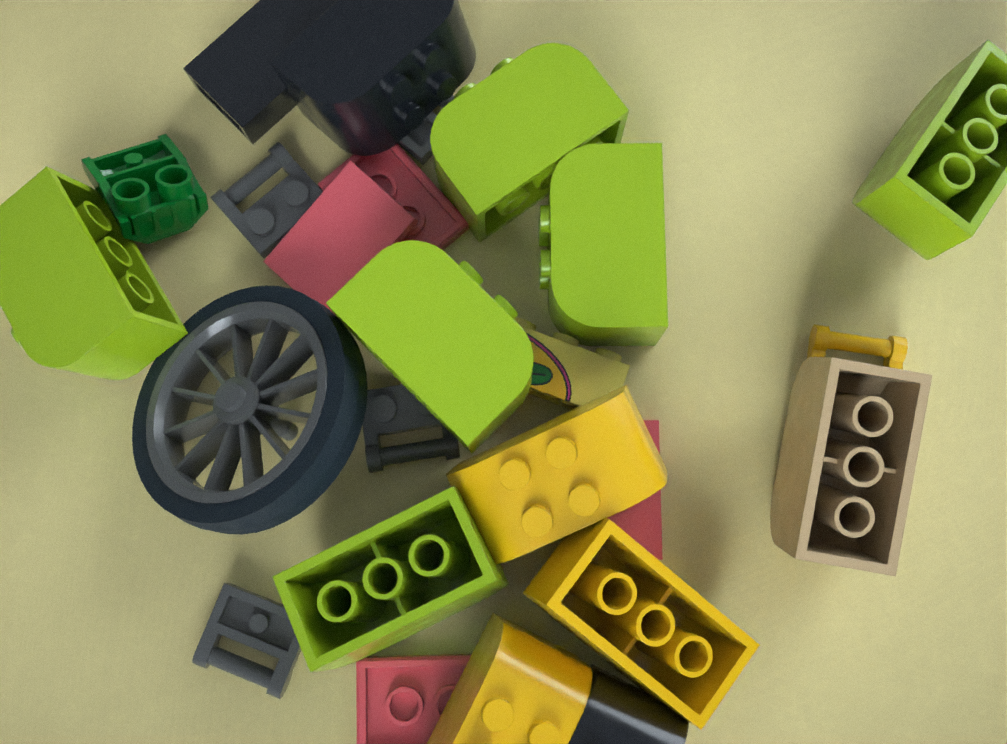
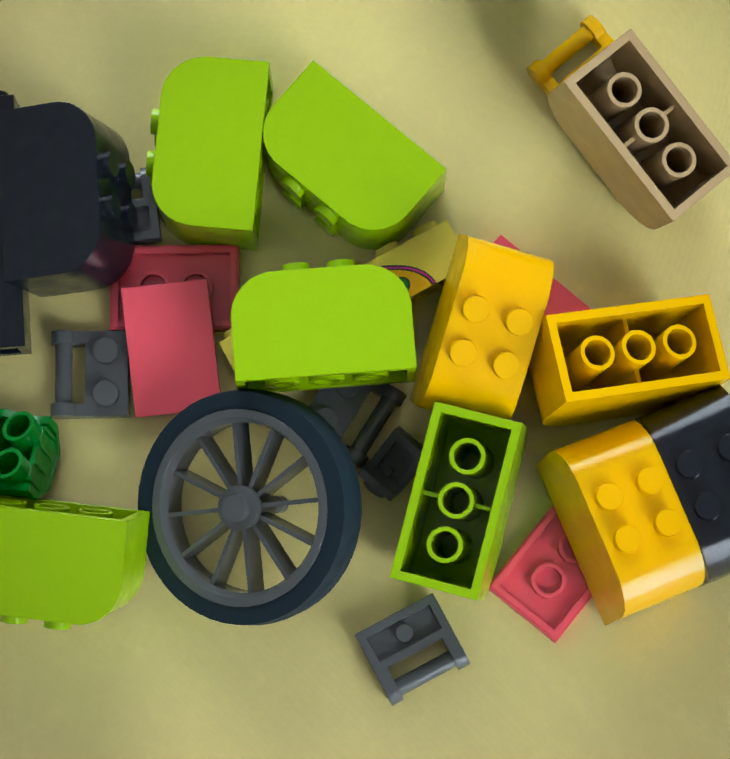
camera: 50 degrees left, 0 degrees up
(387, 494) = (392, 465): none -> dark grey bracket

